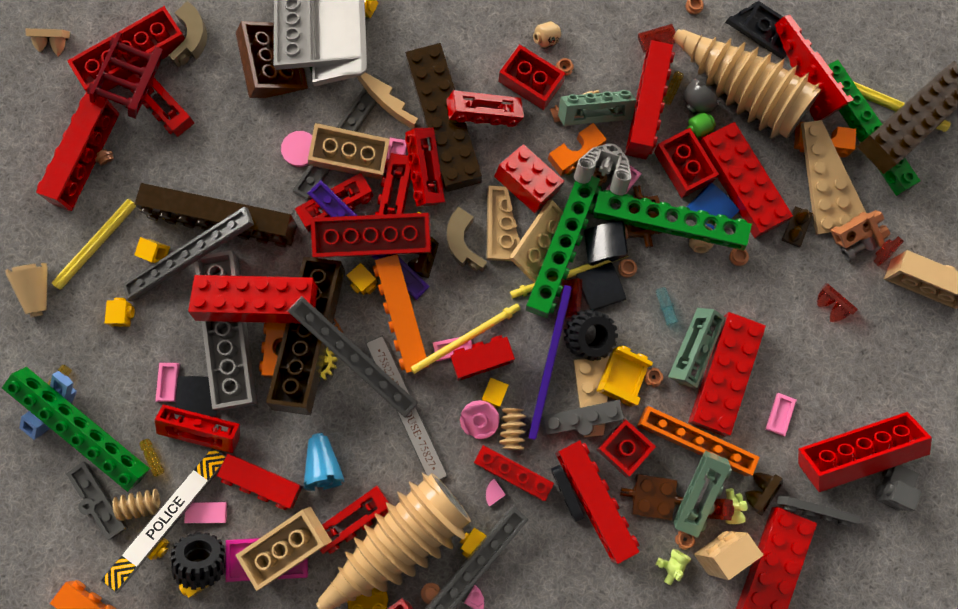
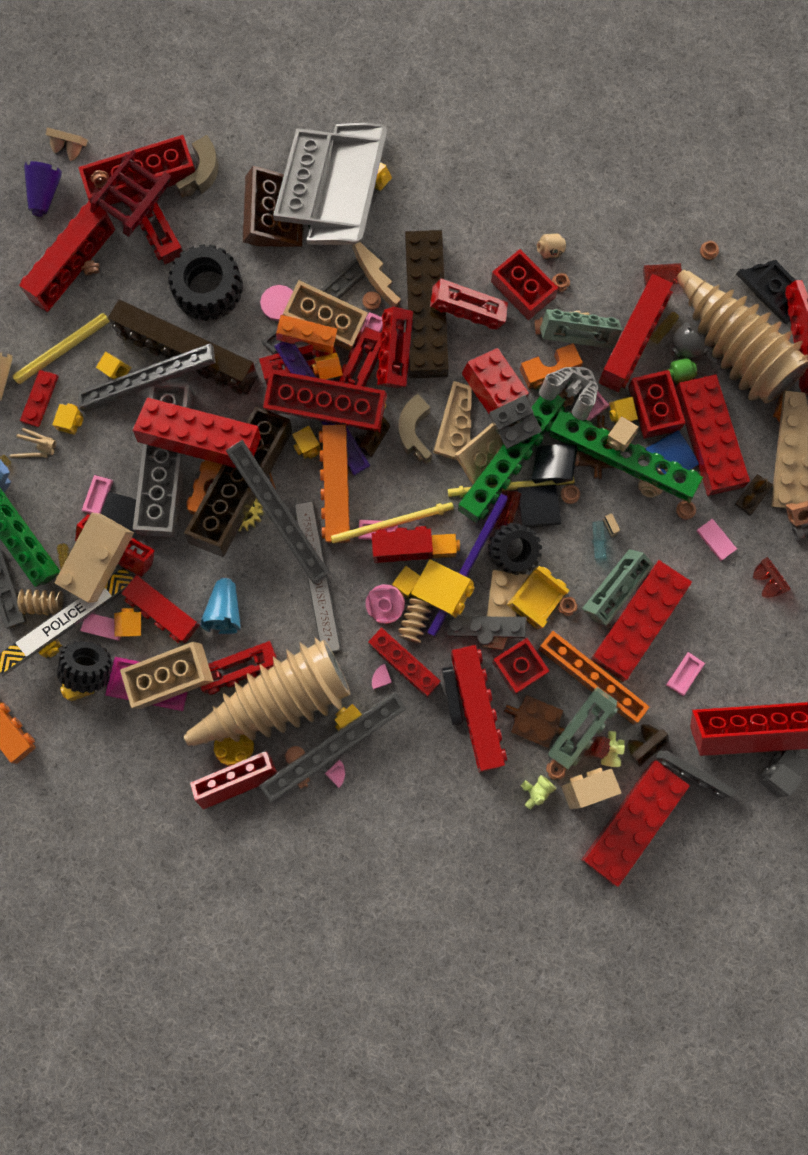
camera: 20 degrees right, 0 degrees up
(33, 88) = (40, 186): none -> dark purple cone
(84, 299) = (39, 398): none -> red plate
(91, 67) = (99, 178): none -> nougat plate
(101, 345) = (44, 445): none -> tan plant
(180, 448) = (94, 557): none -> tan brick
(212, 125) = (203, 260): none -> black tyre
(230, 504) = (127, 623): none -> light orange brick
(348, 173) = (294, 330): none -> orange arch
(364, 201) = (327, 366): none -> light orange brick
(389, 125) = (371, 300): none -> nougat plate
(523, 347) = (445, 545): none -> light orange brick
(532, 391) = (443, 588): none -> yellow panel
(554, 205) = (510, 414): none -> dark grey brick
(656, 177) = (623, 407): none -> yellow brick
(665, 201) = (622, 434): none -> tan brick
(674, 289) = (611, 525): none -> tan tile
(775, 278) = (716, 539): none -> bright pink tile

